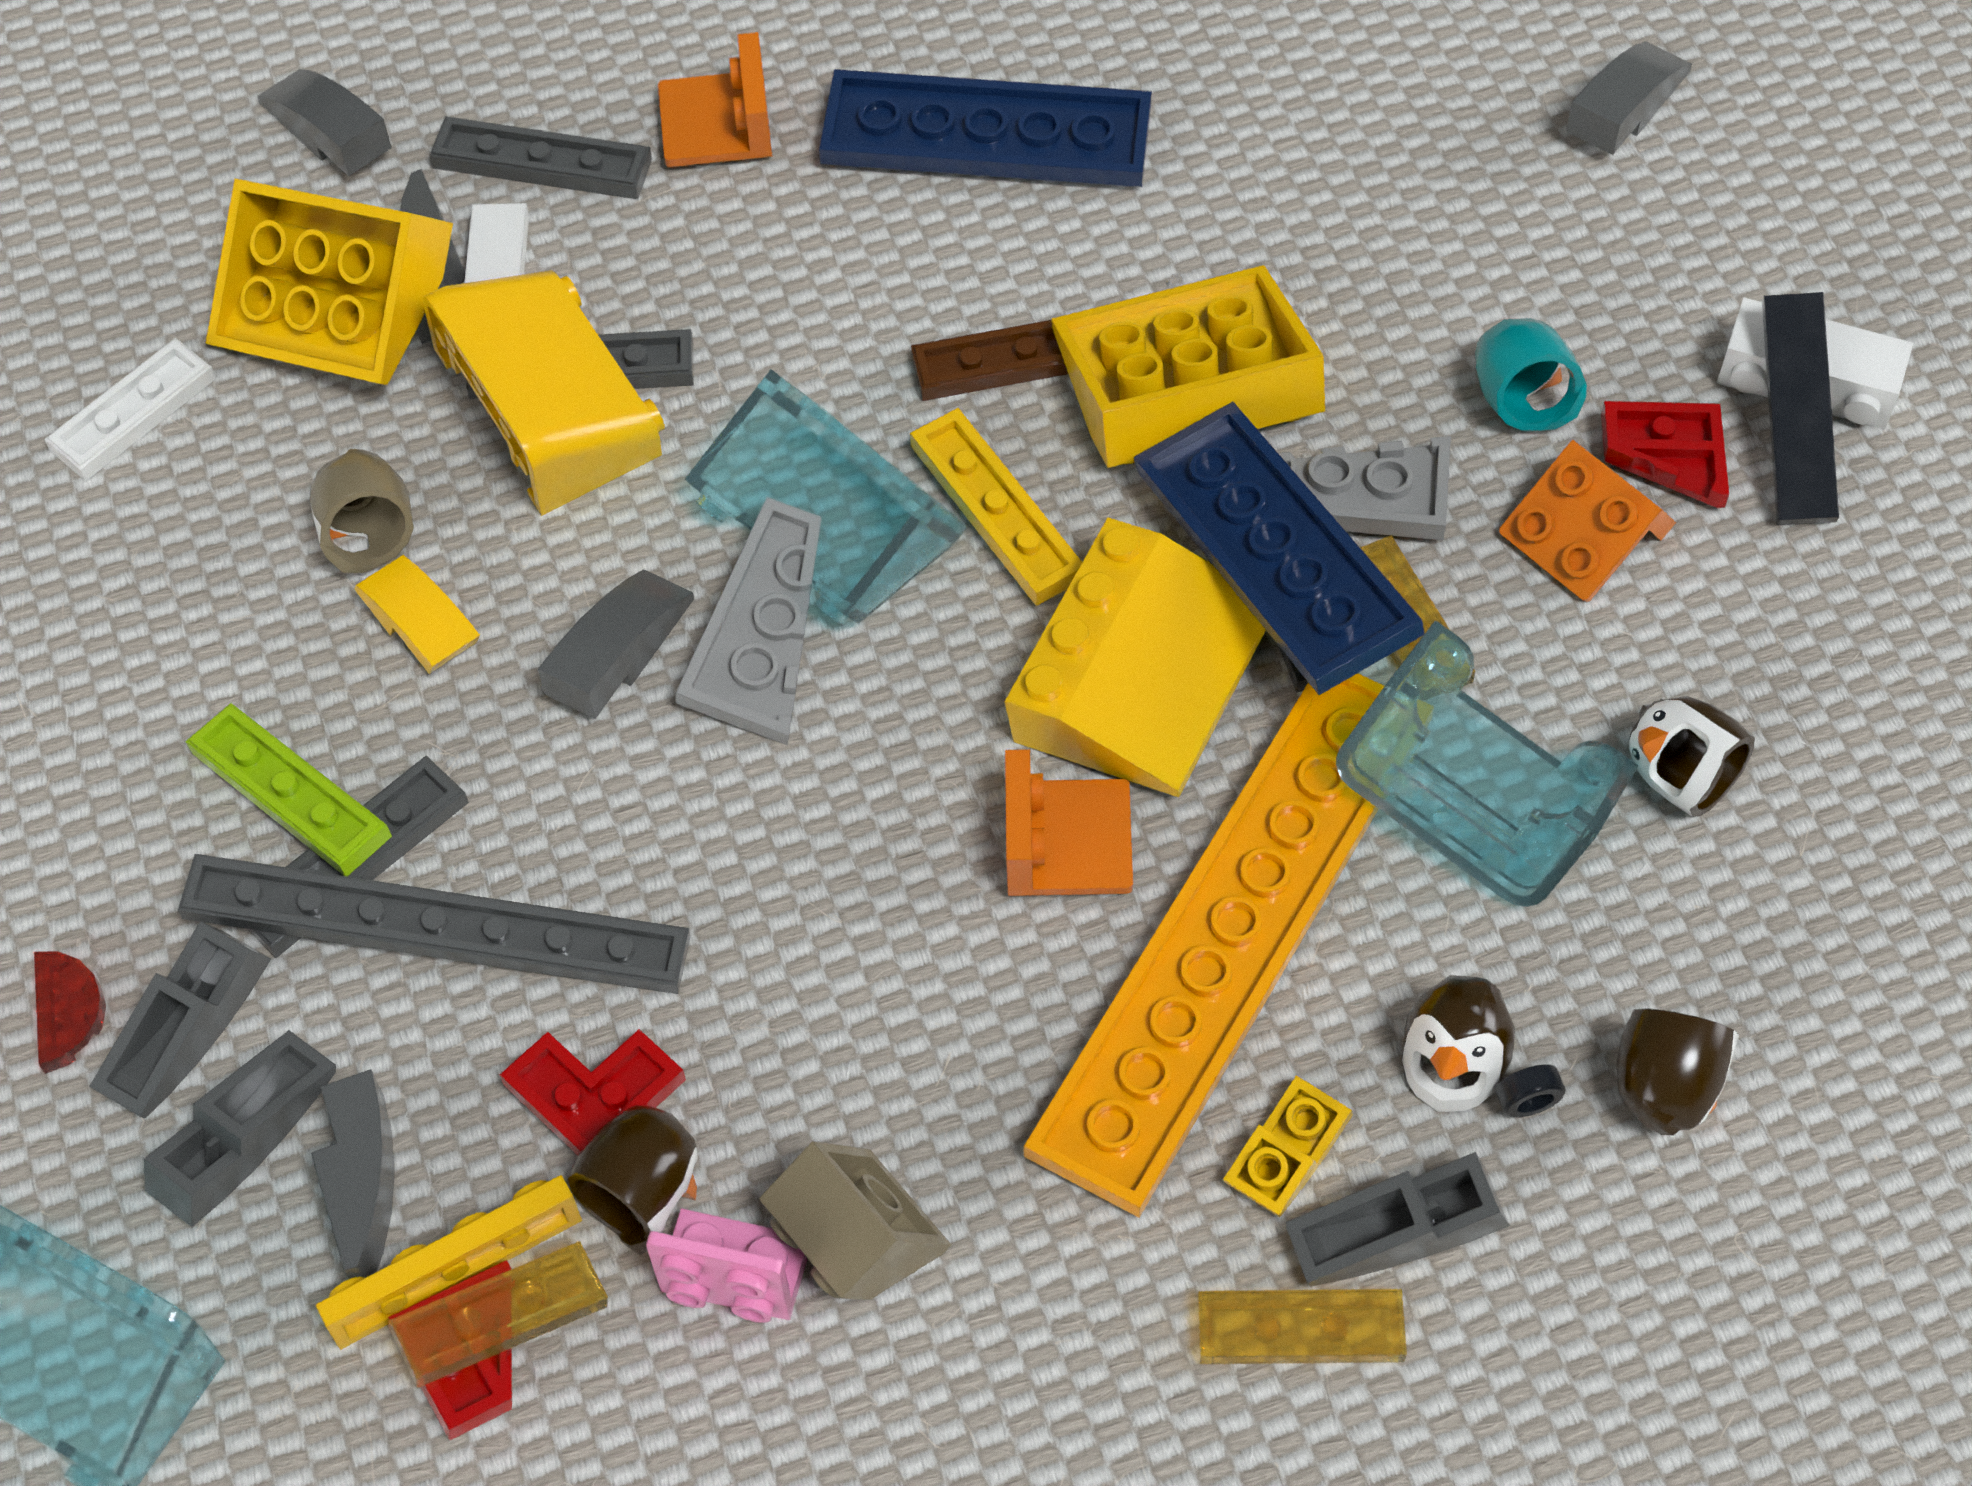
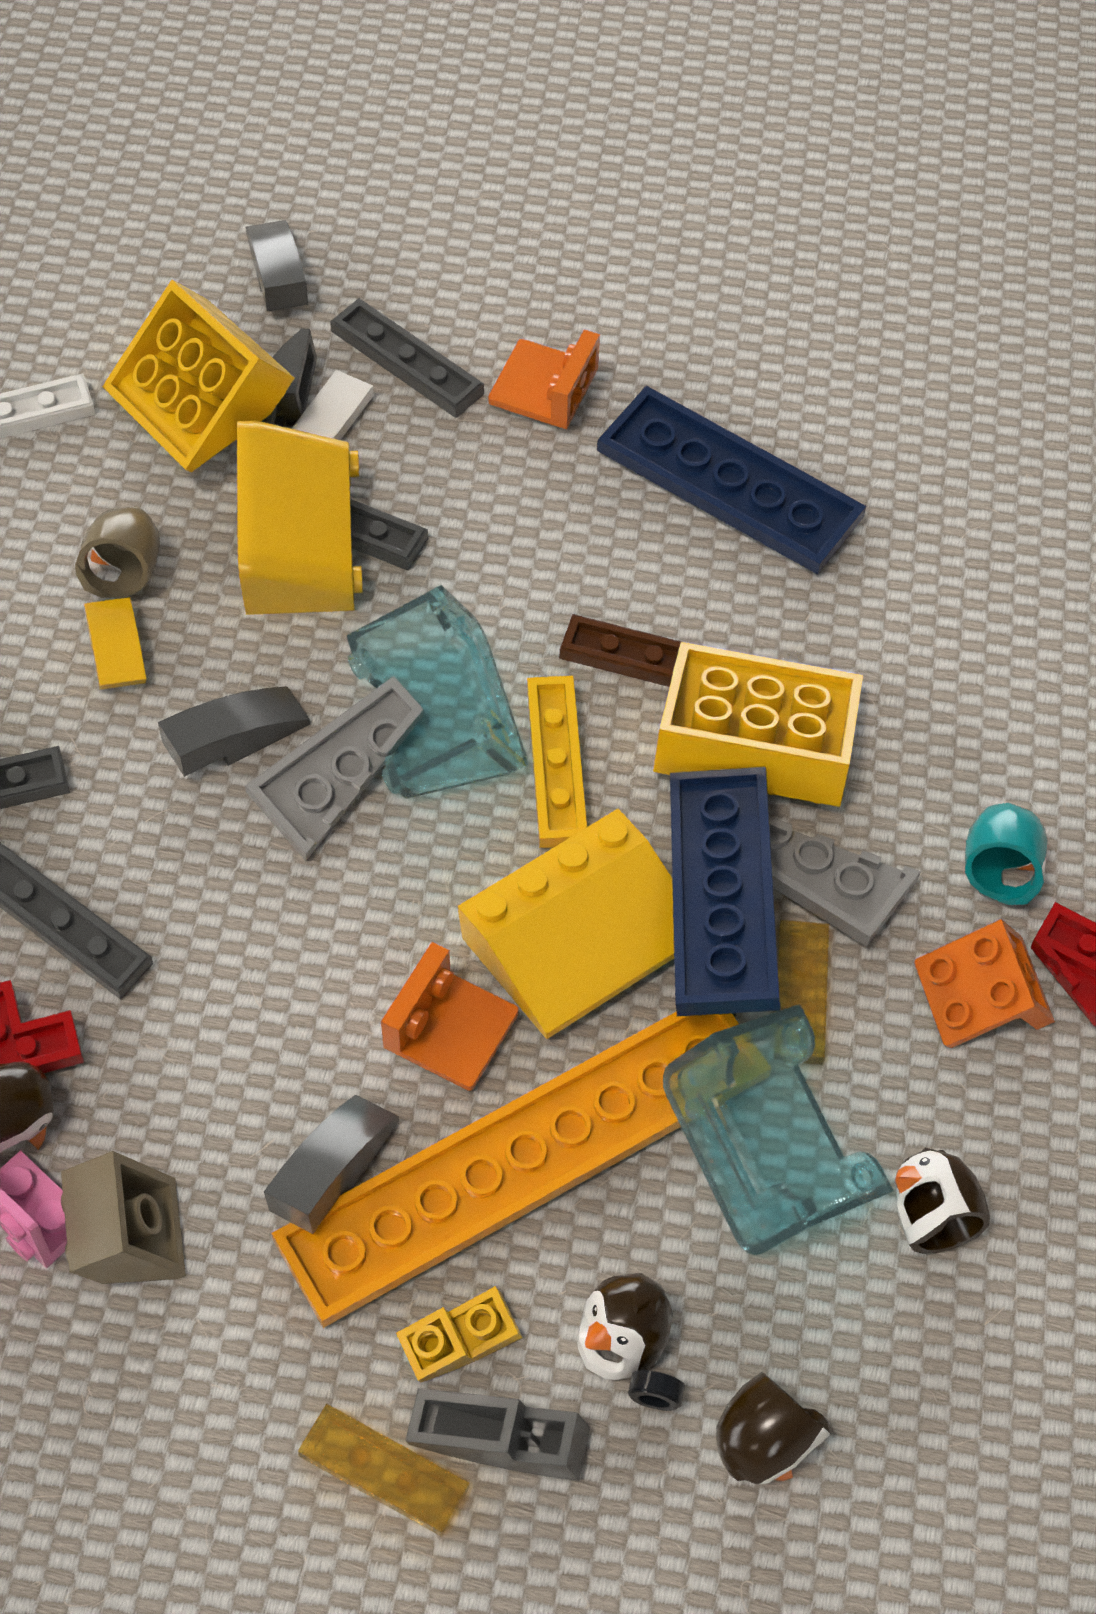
camera: 25 degrees right, 0 degrees up
(1038, 1042) = (329, 1162): none -> dark grey slope

